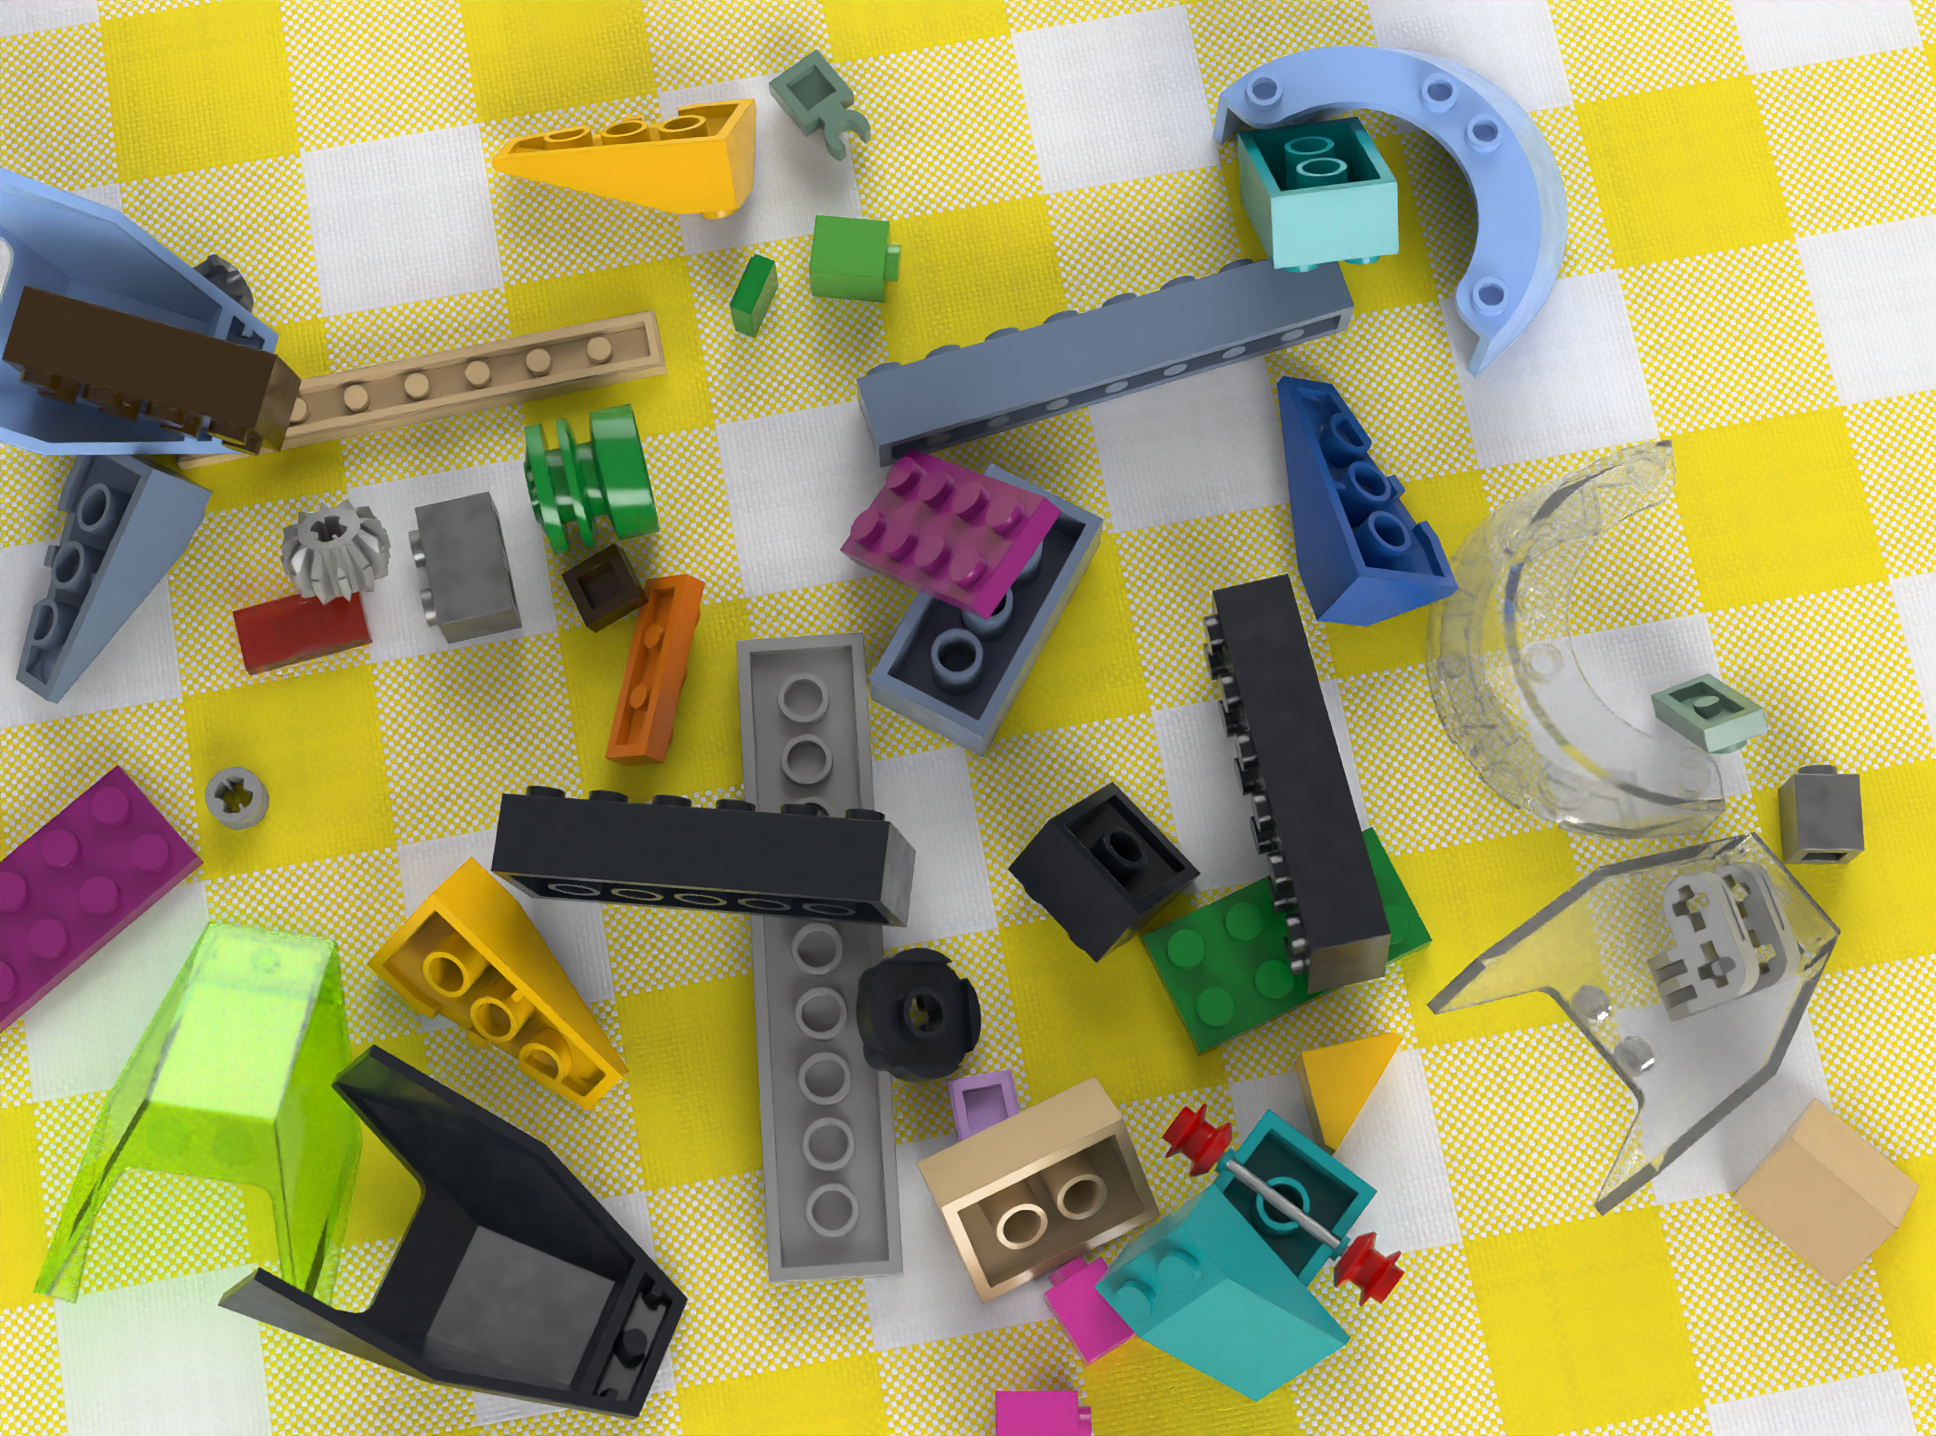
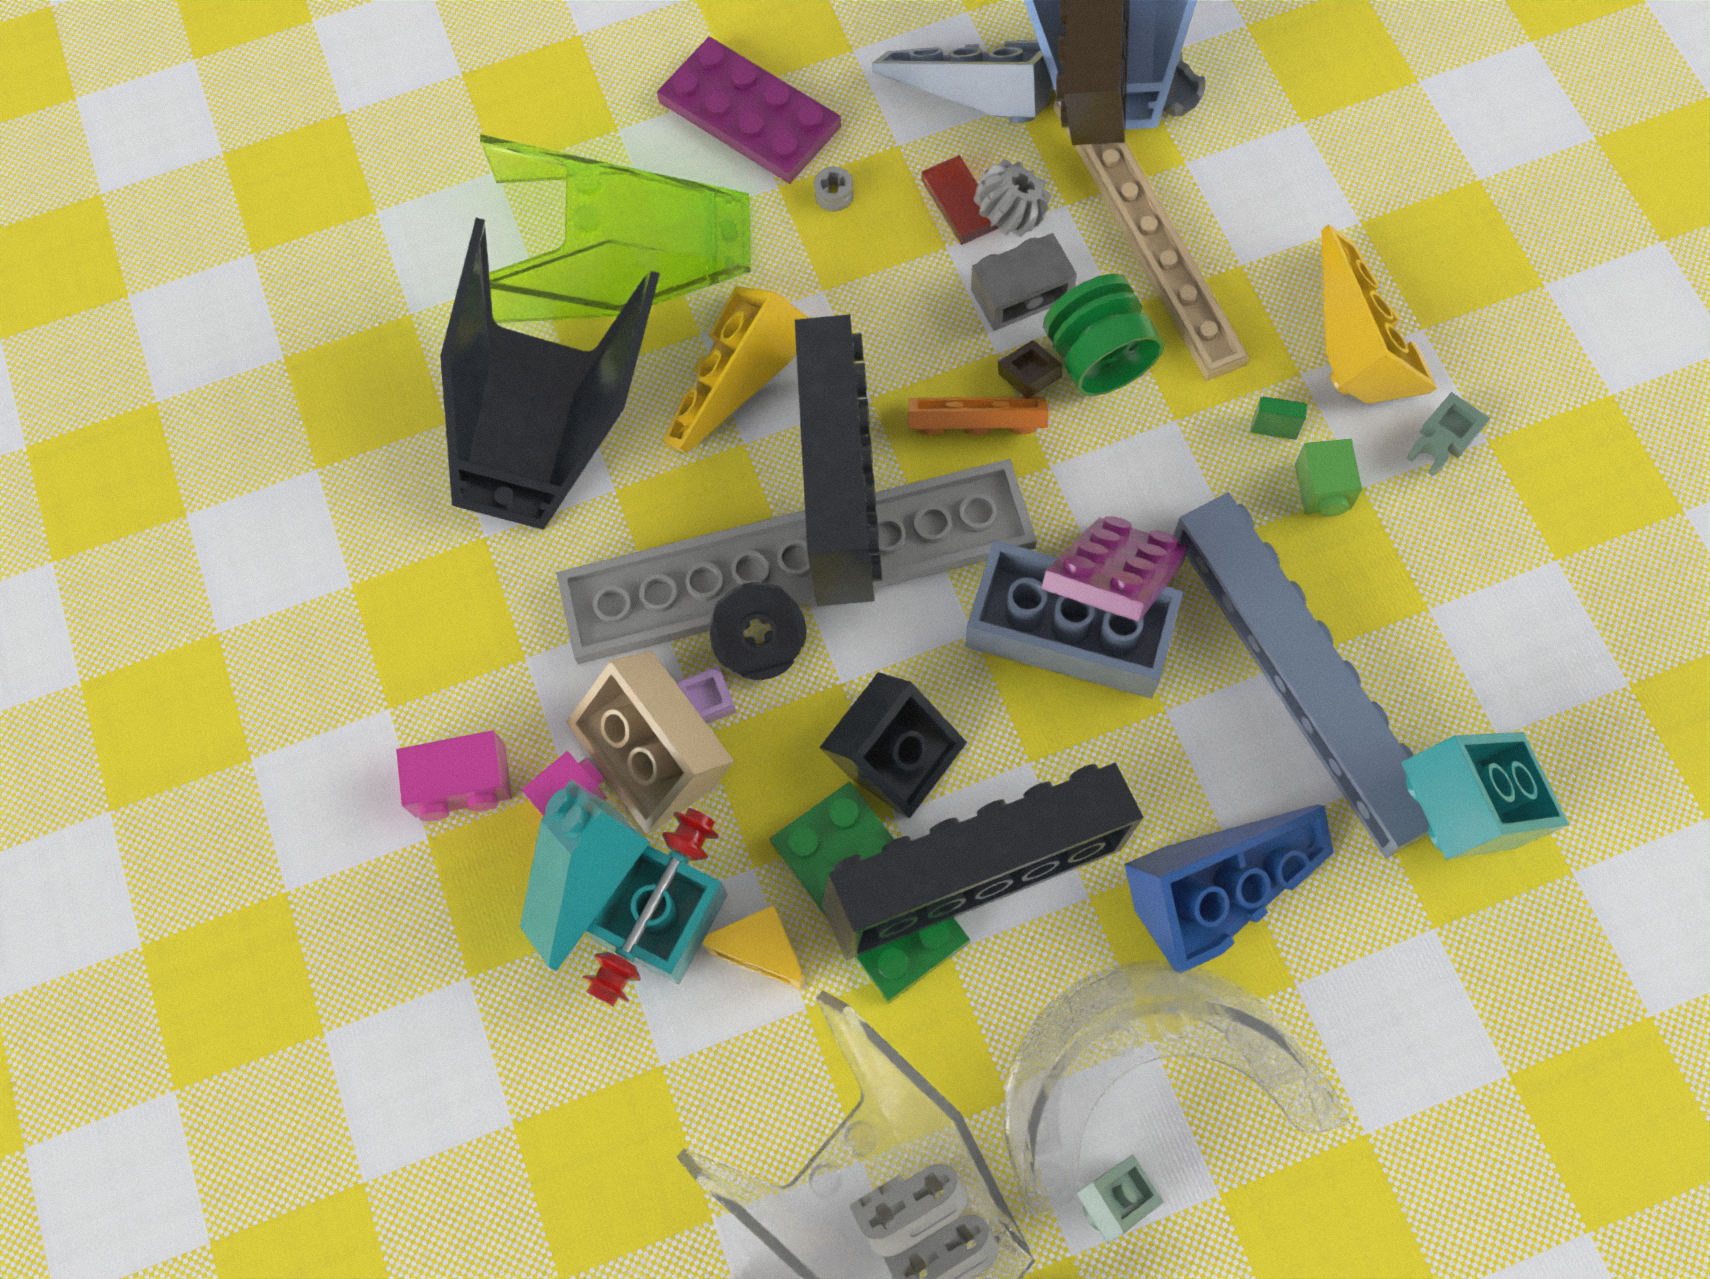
camera: 85 degrees right, 5 degrees down
(1484, 130) = (1578, 943): light blue windscreen -> none

